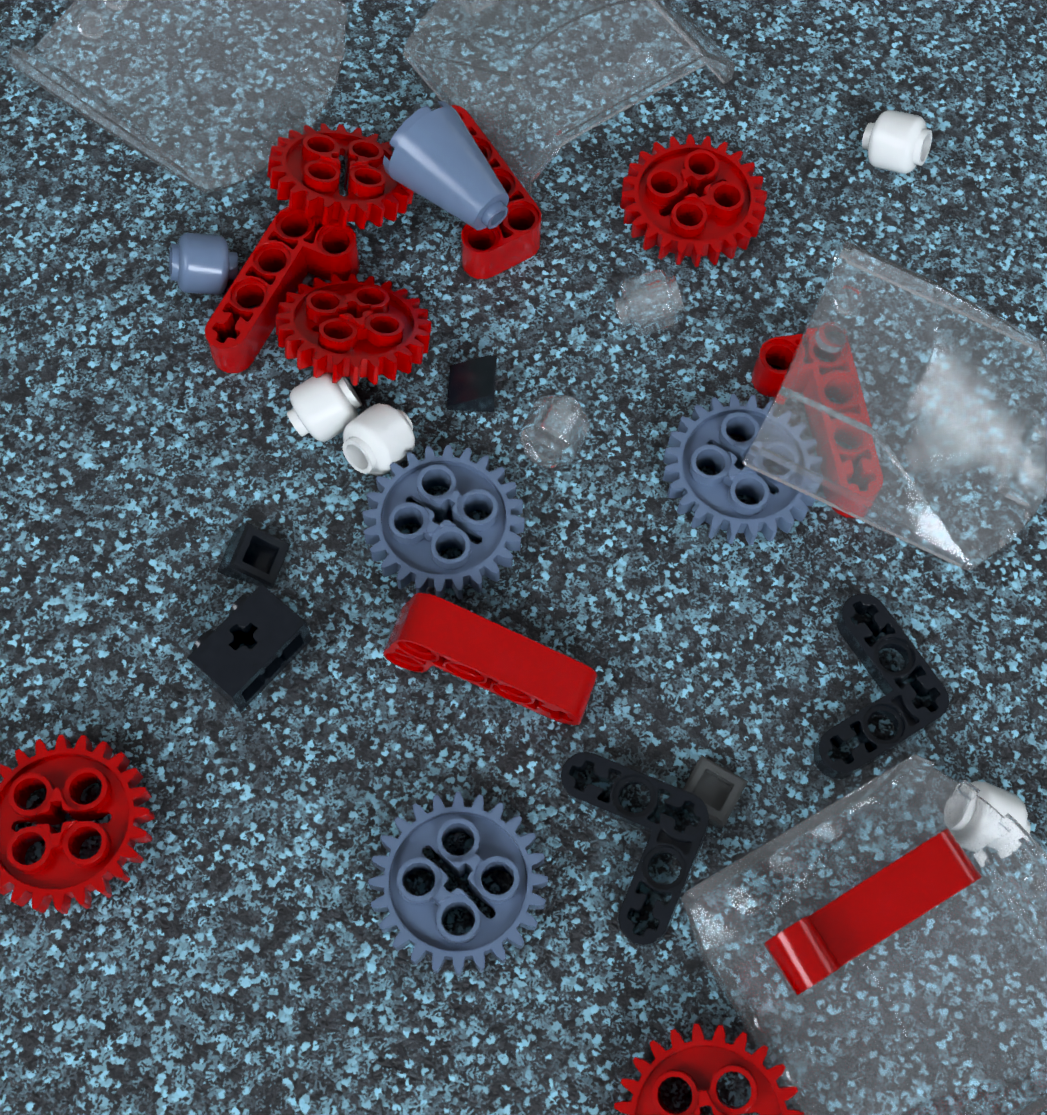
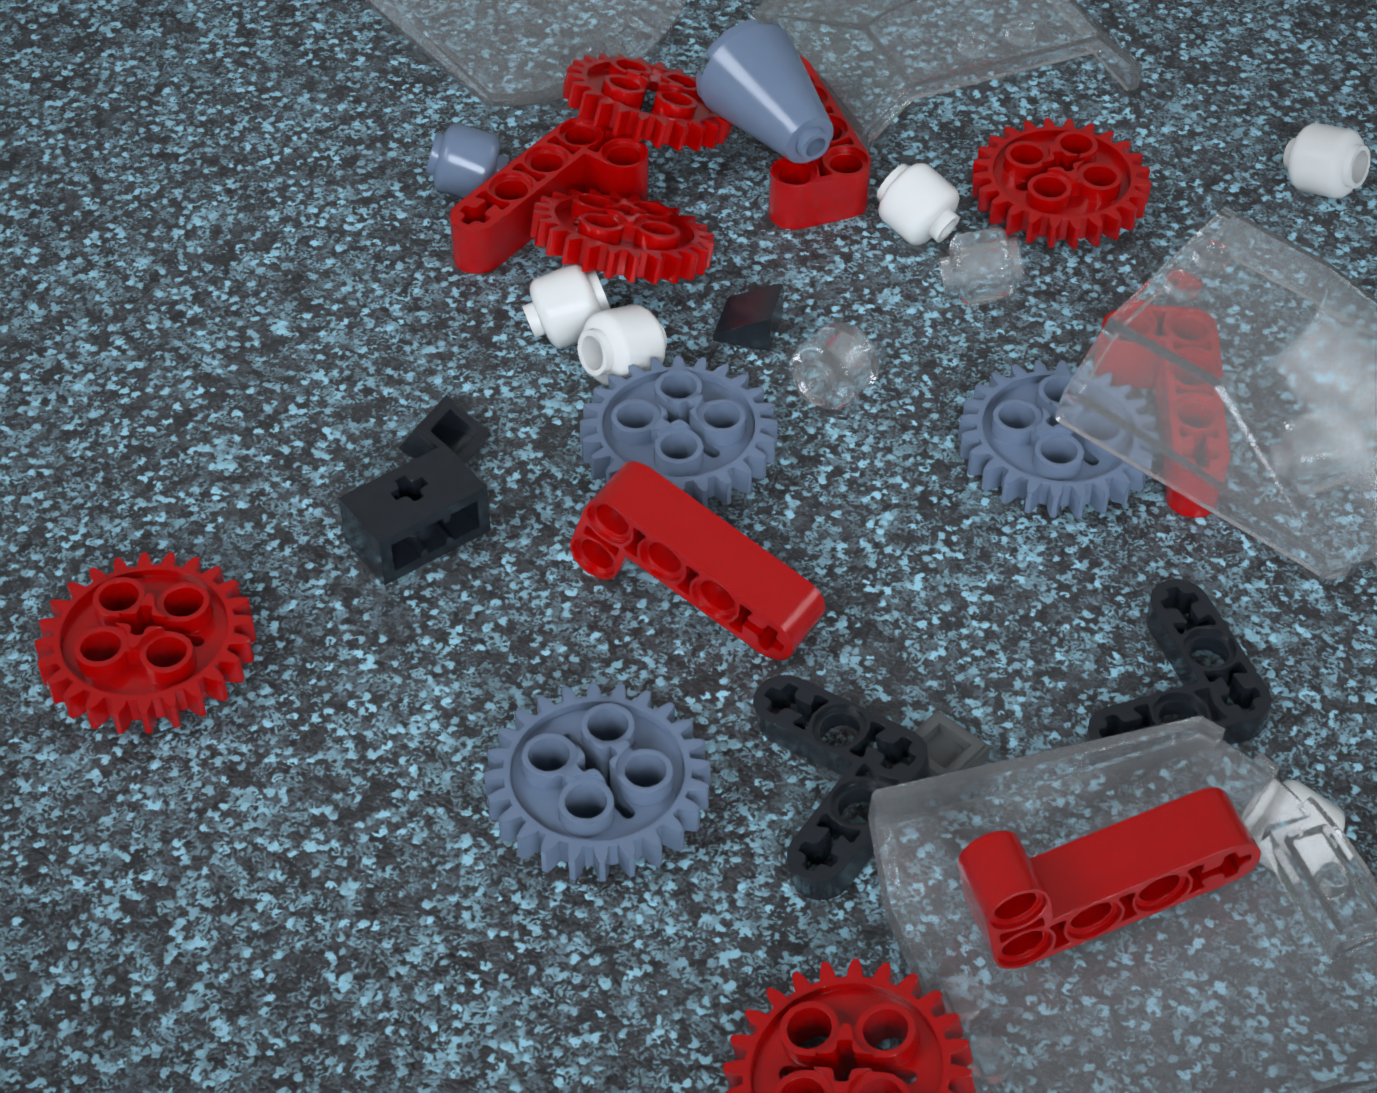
camera: 15 degrees right, 20 degrees down
(585, 244) = (918, 203): none -> white head

